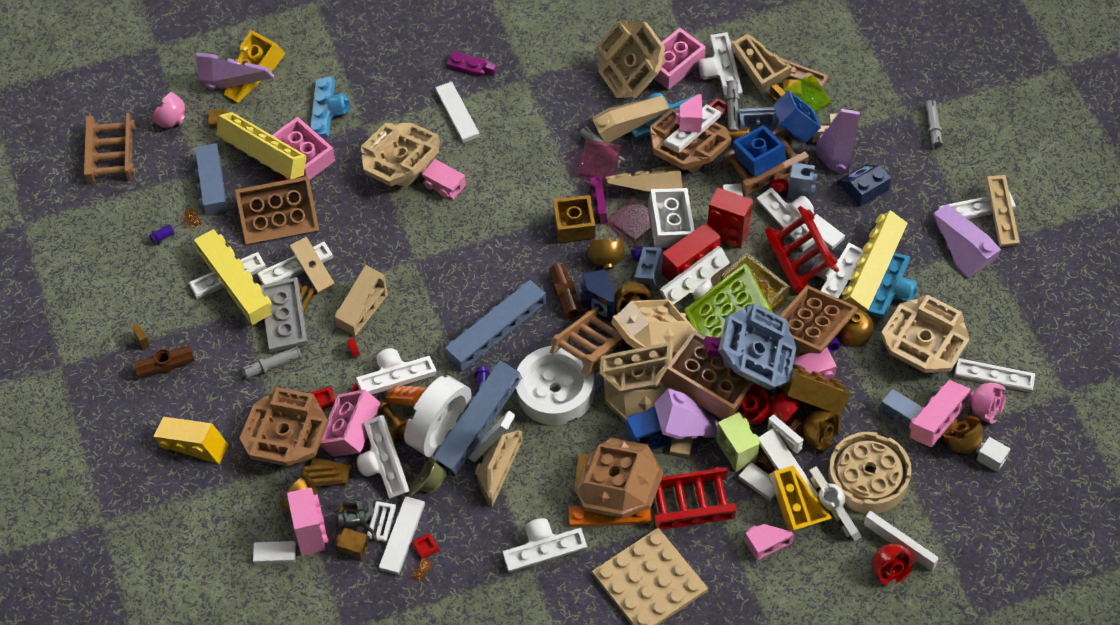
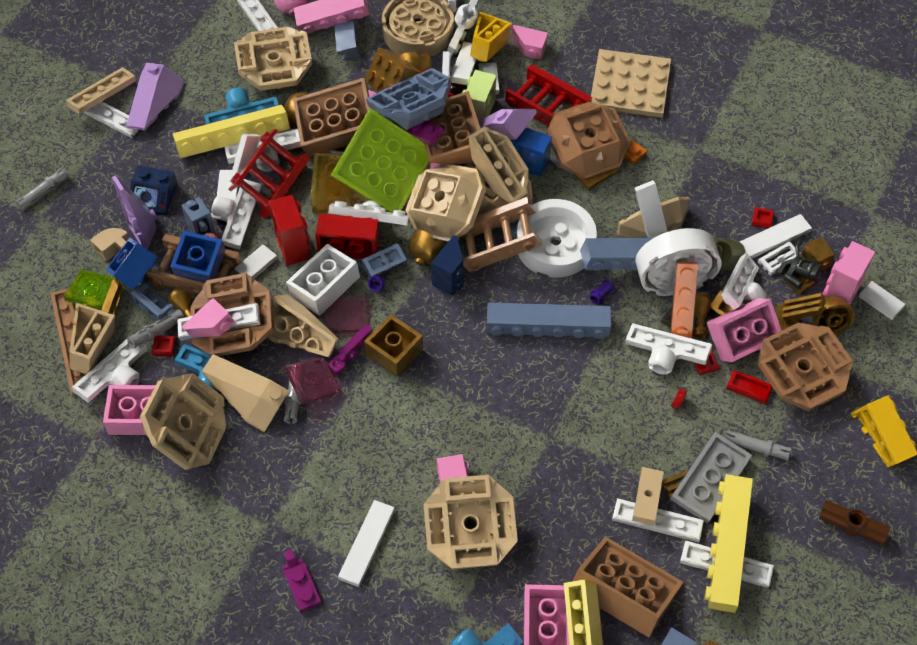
camera: 135 degrees left, 0 degrees up
(140, 336) = (857, 564): pearl gold tile -> none
(361, 301) = (637, 426): tan wedge -> none
(425, 566) = (776, 204): clear orange piece -> none
(543, 545) = (680, 151): white plate -> none
(565, 290) = (465, 302): reddish brown piece -> none
(606, 253) = (400, 295): pearl gold cylinder -> none
(837, 248) = (246, 149): none -> tile

